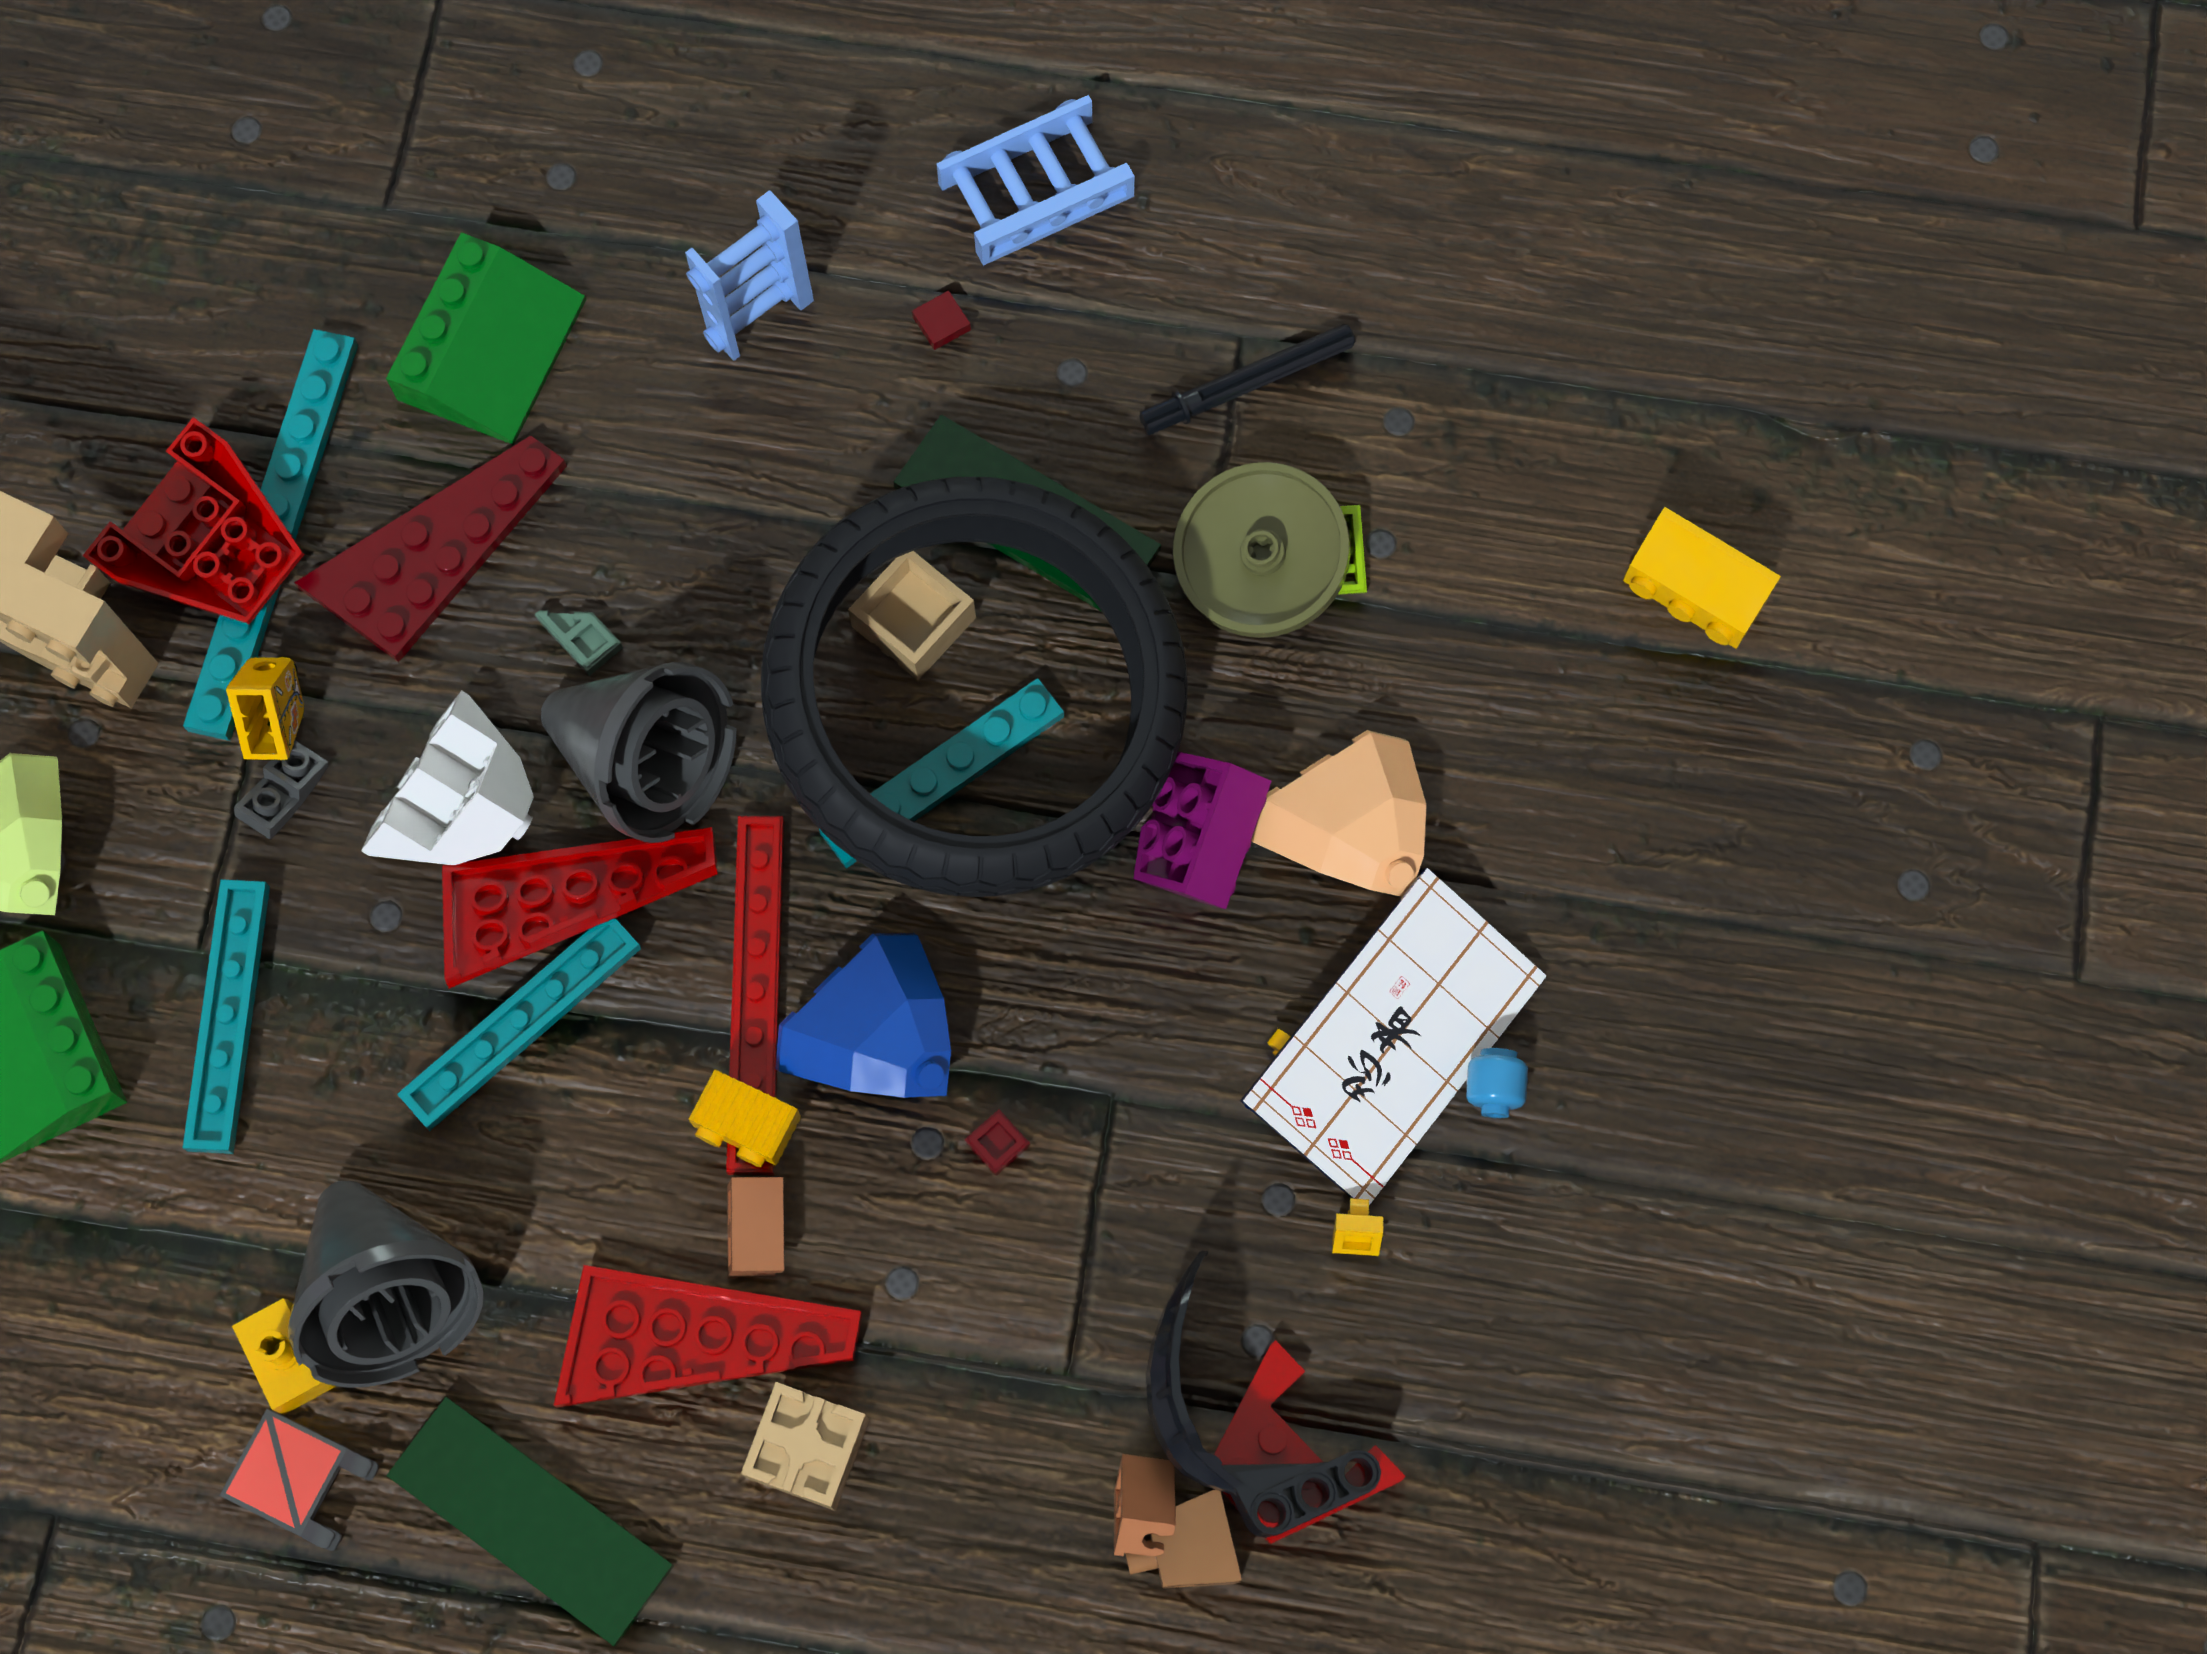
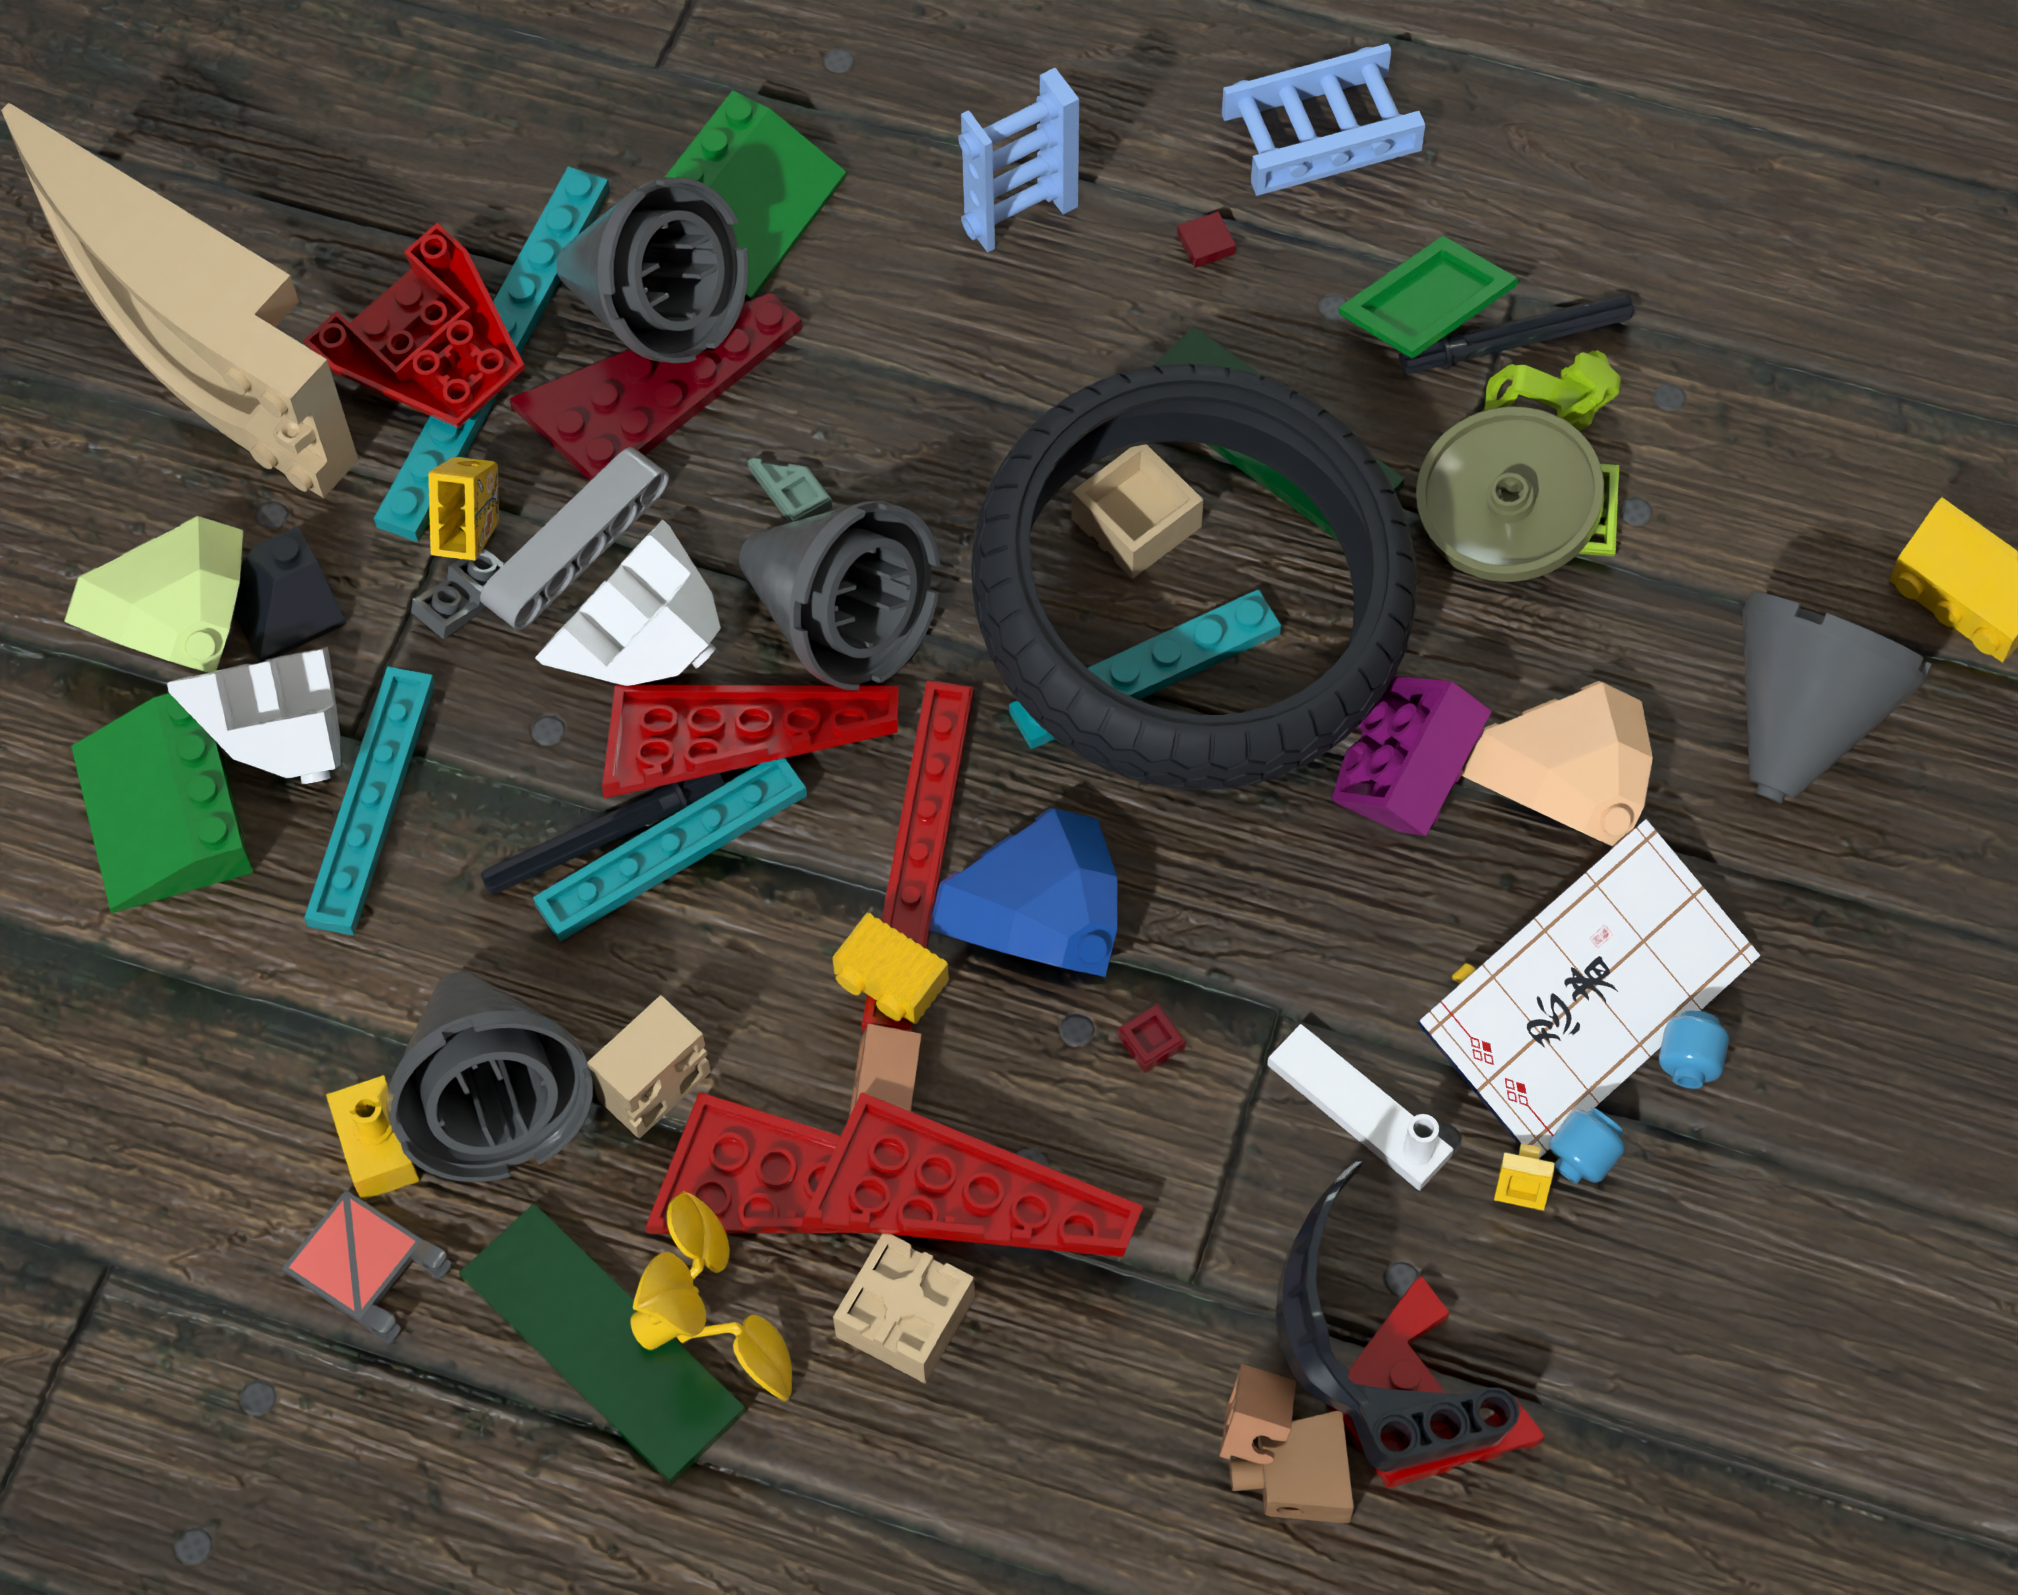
camera: 10 degrees right, 10 degrees down
(109, 820) = (284, 596): none -> black slope
(115, 952) = (270, 713): none -> white brick
(380, 719) = (574, 538): none -> light grey beam
(420, 440) = (661, 269): none -> dark grey cone
(447, 1018) = (598, 832): none -> black axle
(533, 1251) = (649, 1066): none -> tan piece
(584, 1497) = (672, 1308): none -> yellow plant
(815, 1325) = (937, 1183): none -> red wing
(1159, 354) = (1428, 296): none -> green piece
(1198, 1181) = (1360, 1107): none -> white piece
(1311, 436) = (1575, 396): none -> lime piece
(1410, 1191) = (1587, 1146): none -> dark azure head
(1567, 716) = (1814, 690): none -> dark grey cone

